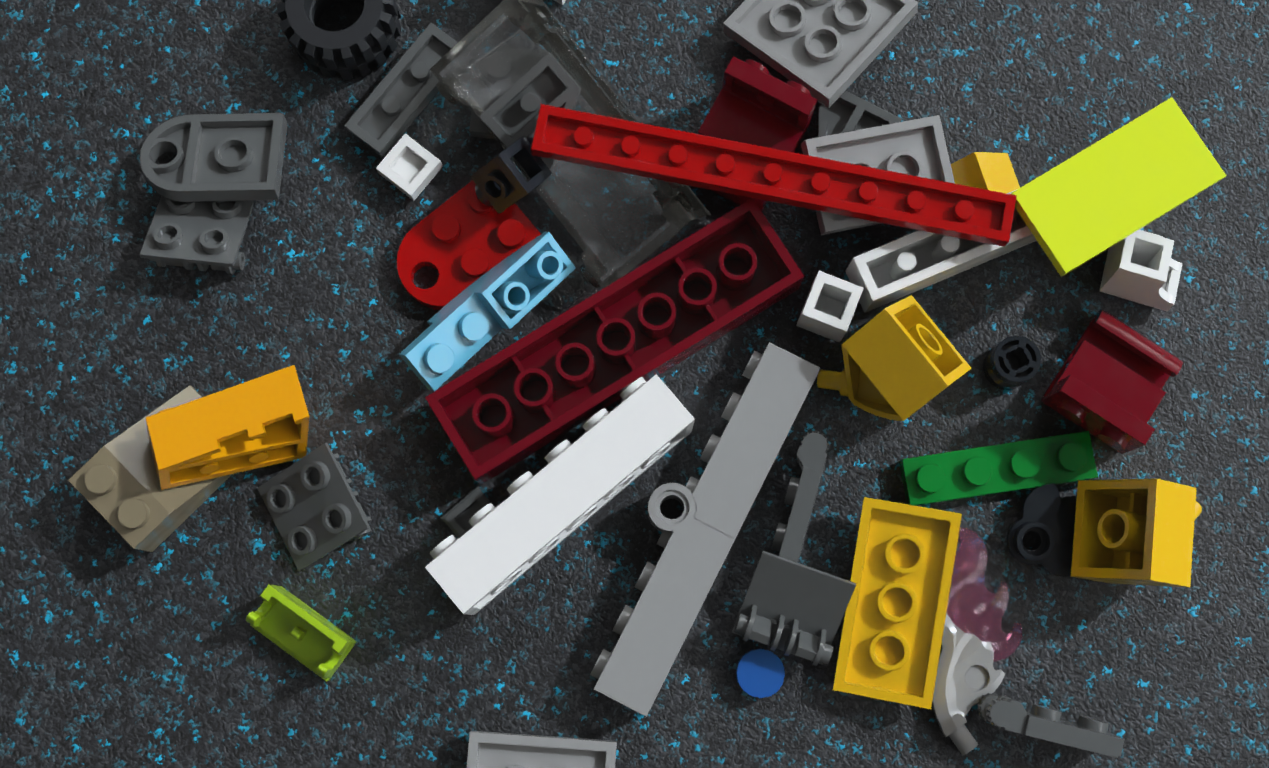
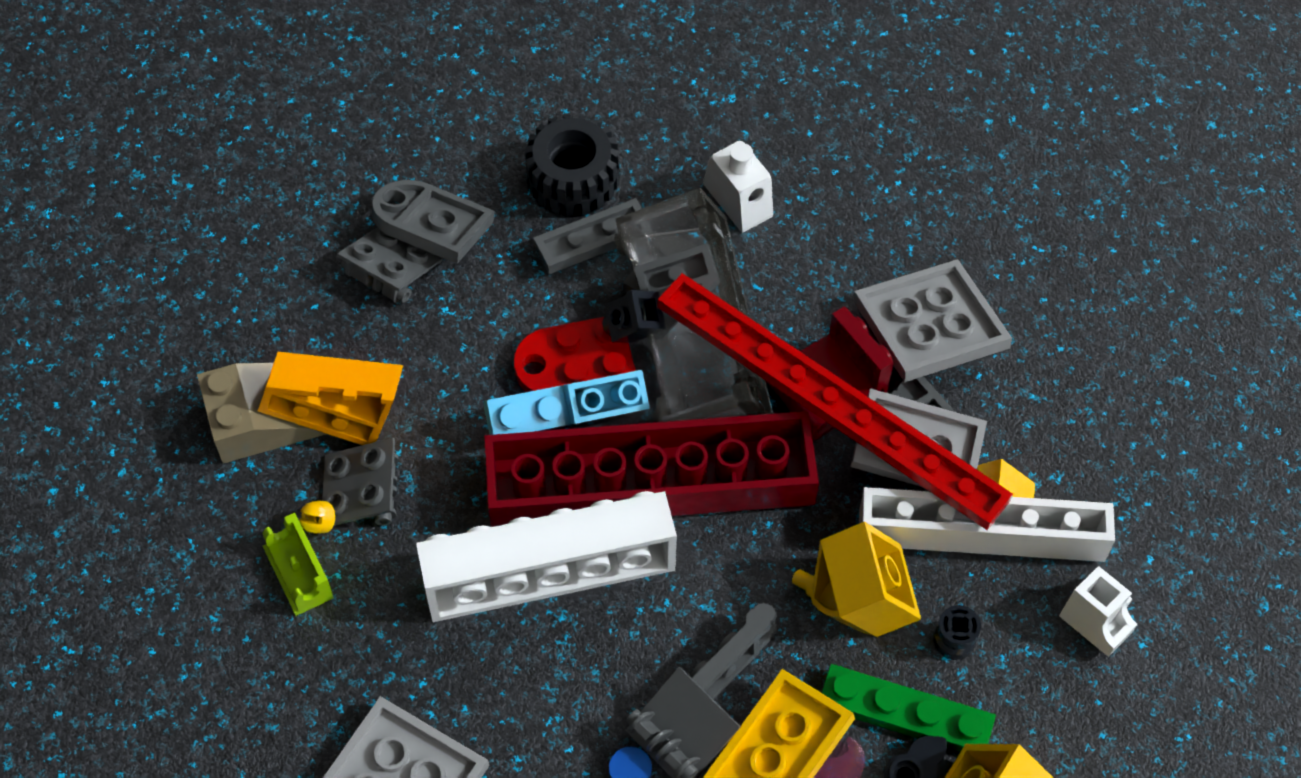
camera: 25 degrees right, 20 degrees down
(291, 567) = (324, 511): none -> yellow hinge
(409, 167) = (565, 287): white plate -> none
(706, 529) = (644, 640): light grey hinge -> none
(829, 306) = (827, 515): white brick -> none
(1112, 383) = (1033, 686): dark red piece -> none
(1117, 186) = (1101, 528): neon yellow tile -> none

